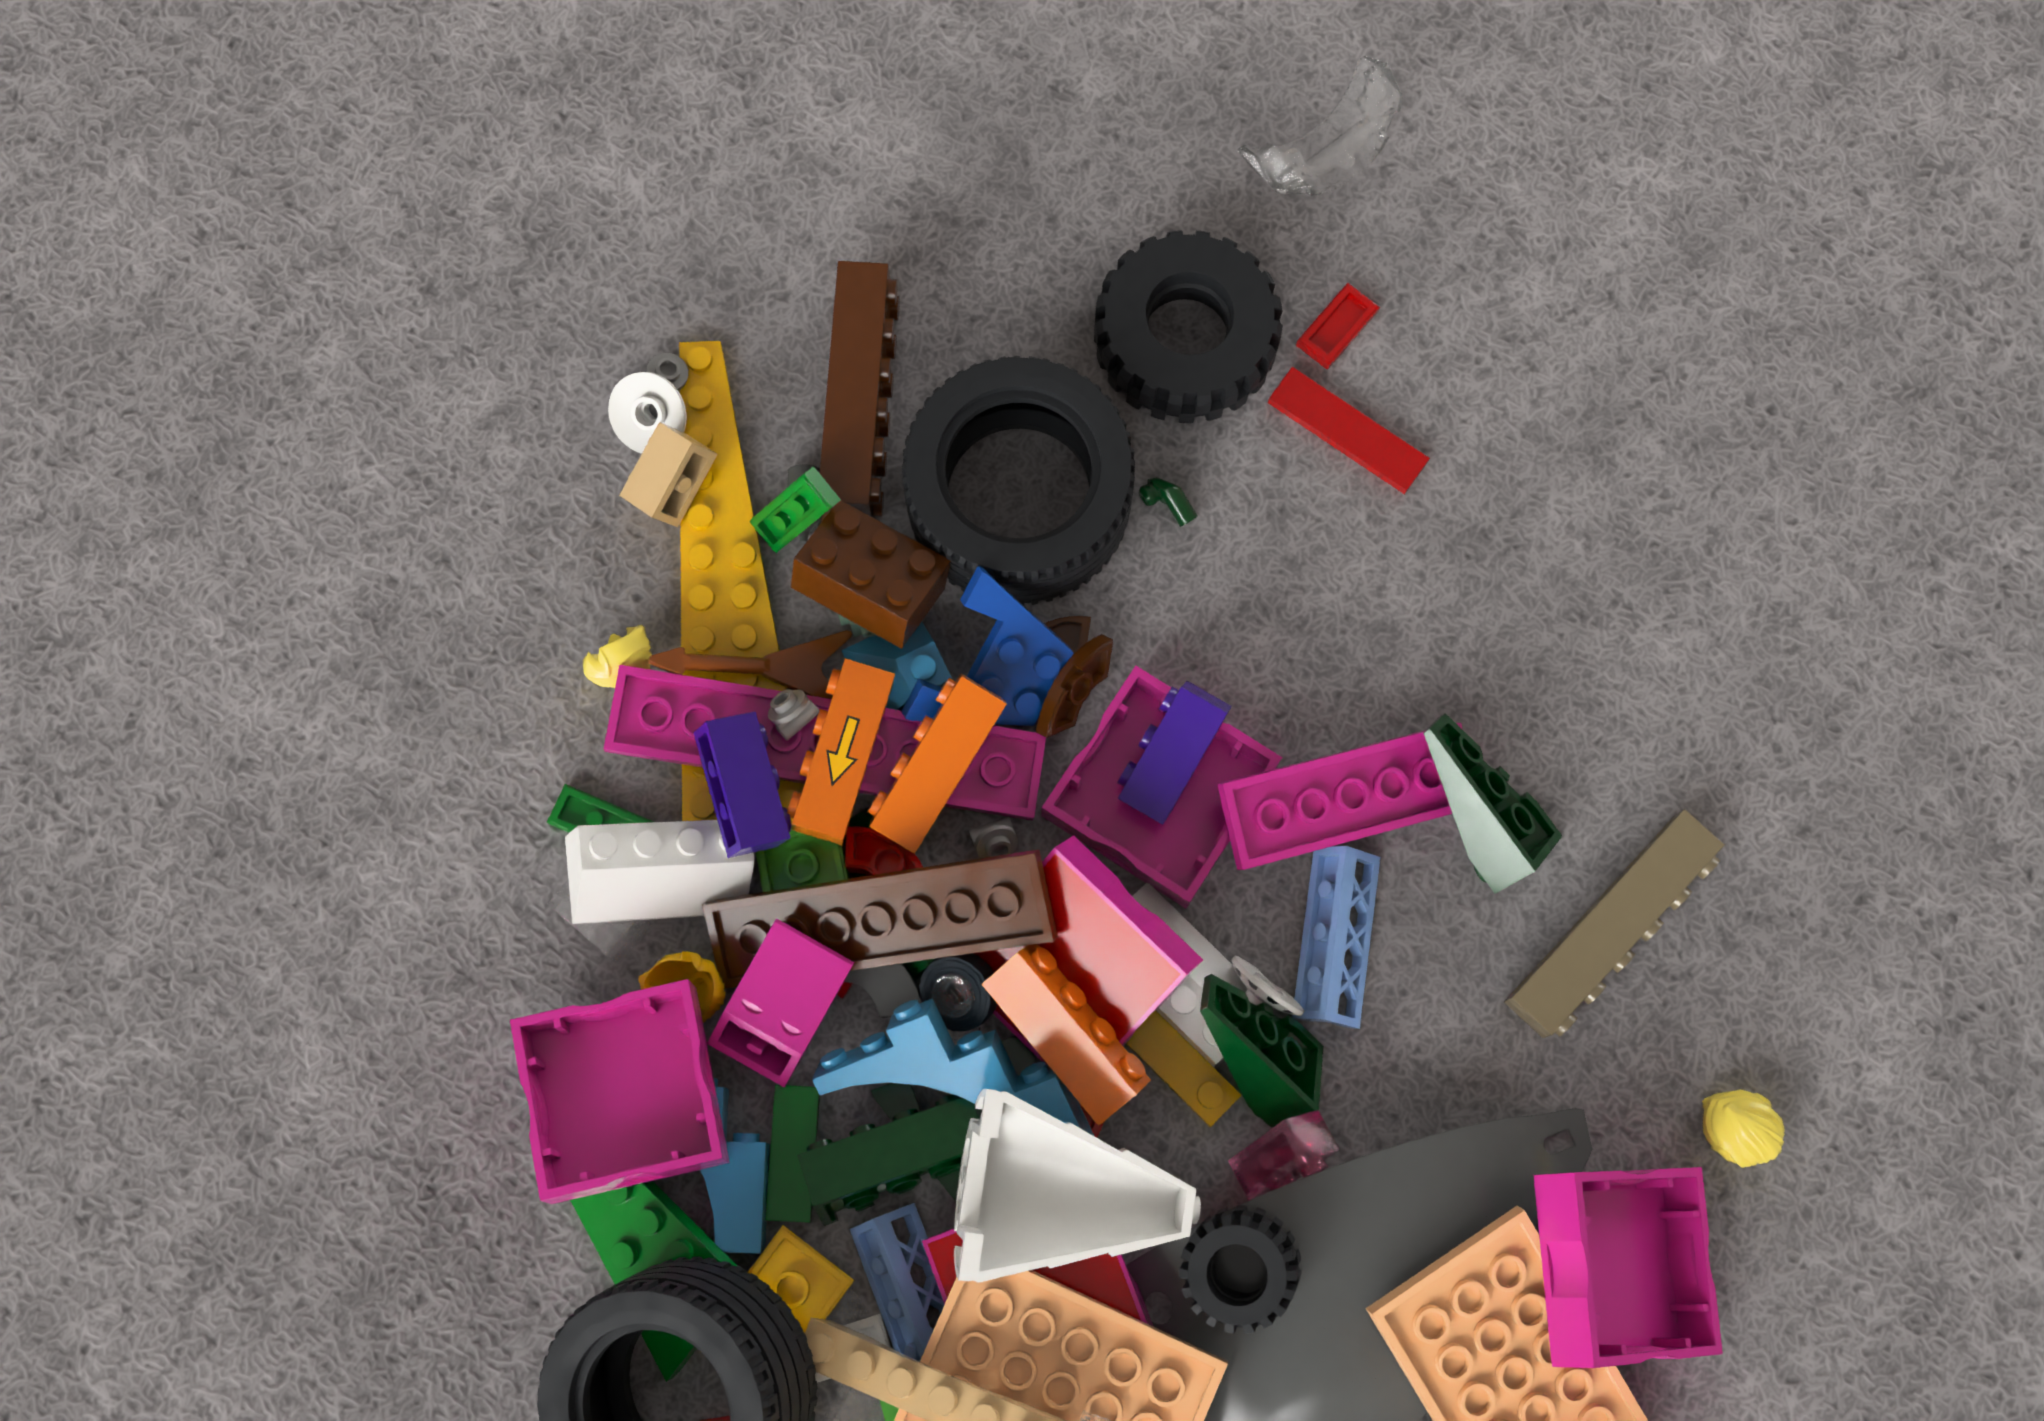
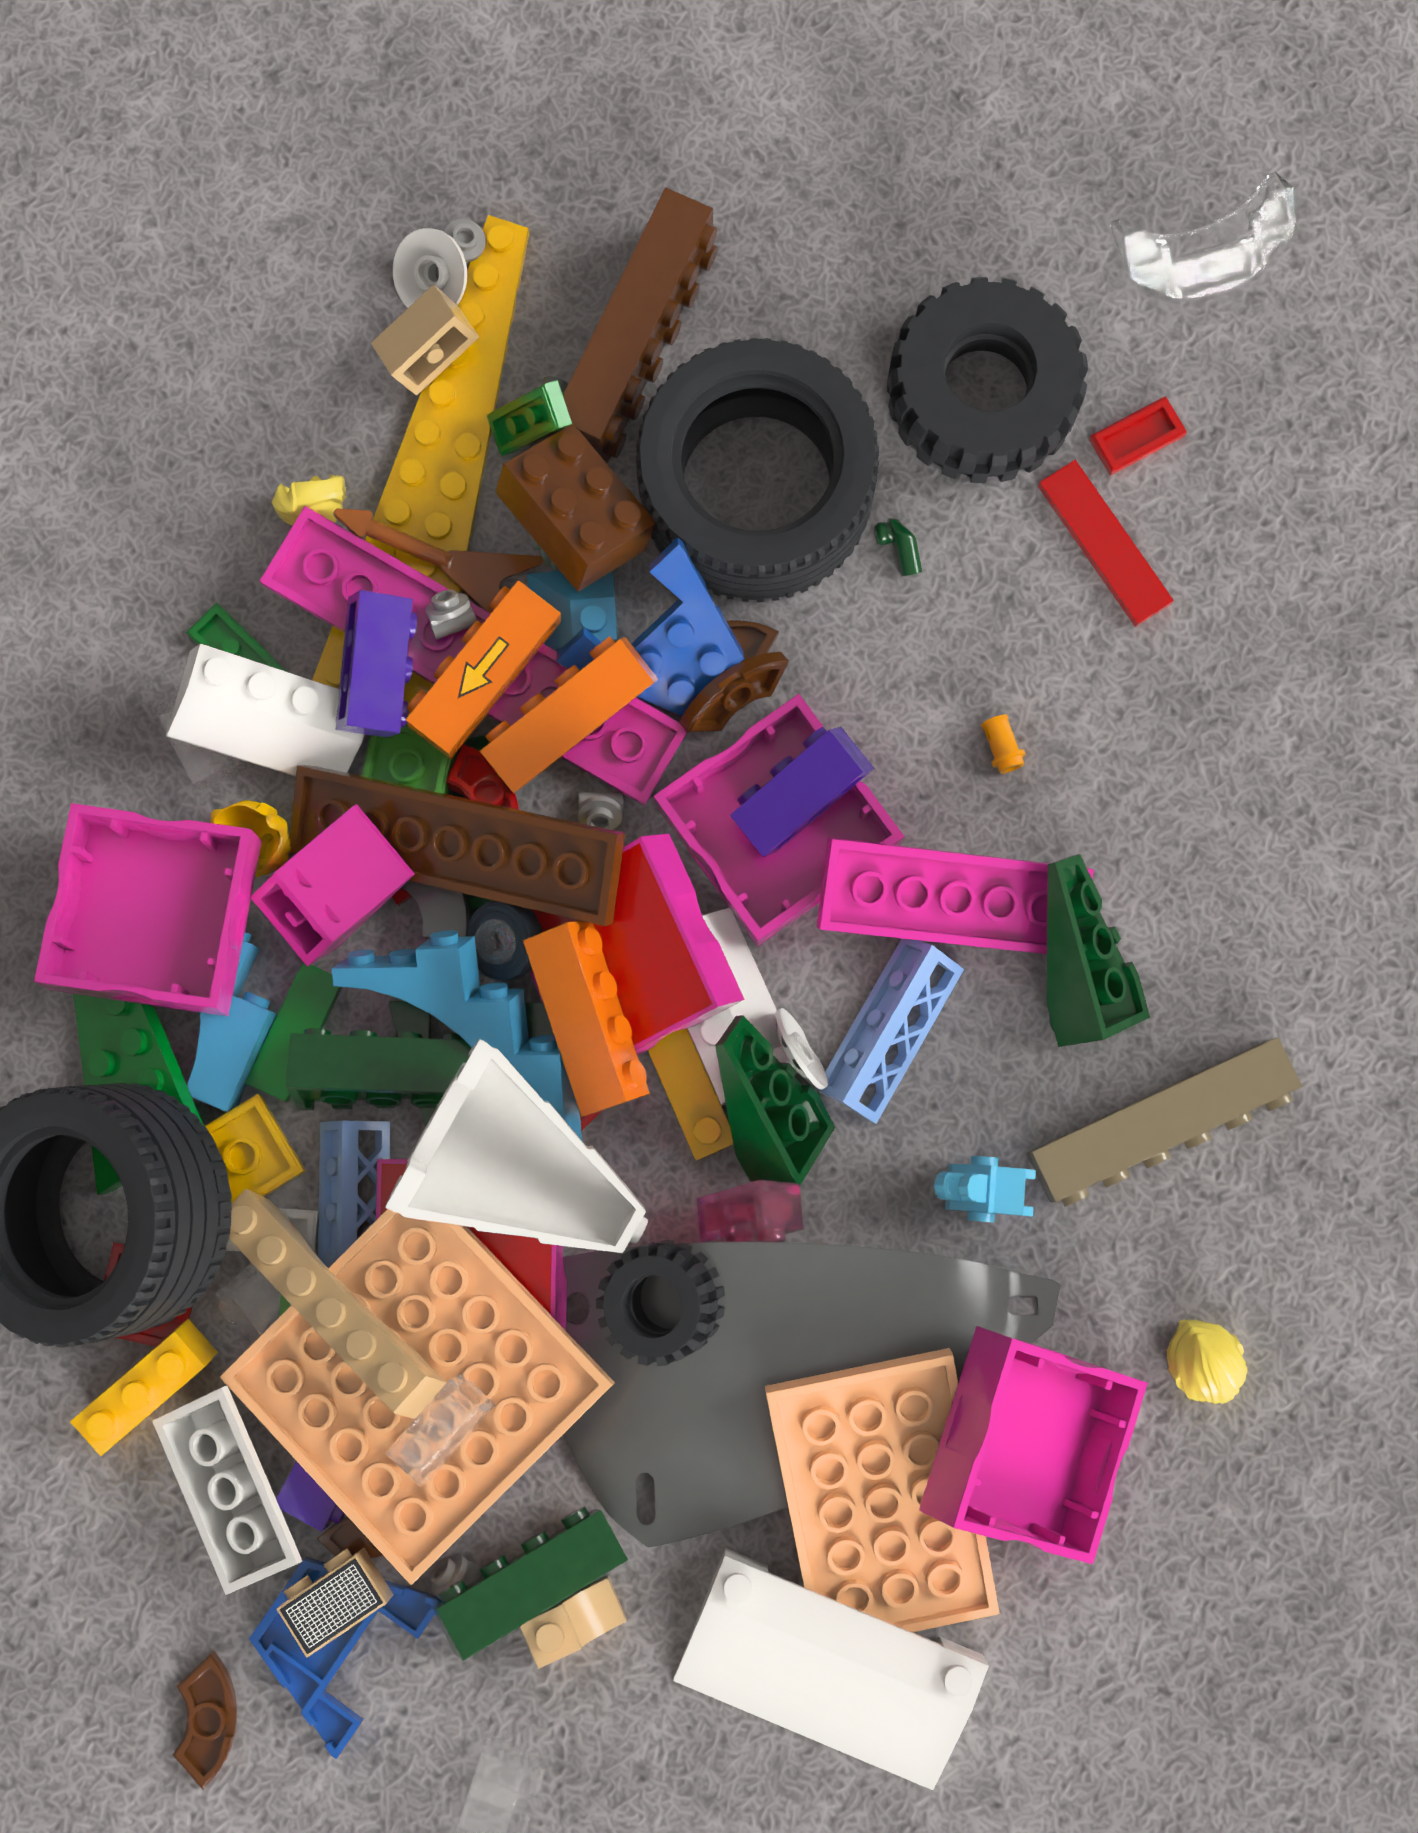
camera: 25 degrees right, 5 degrees up
(1332, 642) = (1003, 744): none -> light orange pin
(1484, 1048) = (984, 1189): none -> medium azure hinge

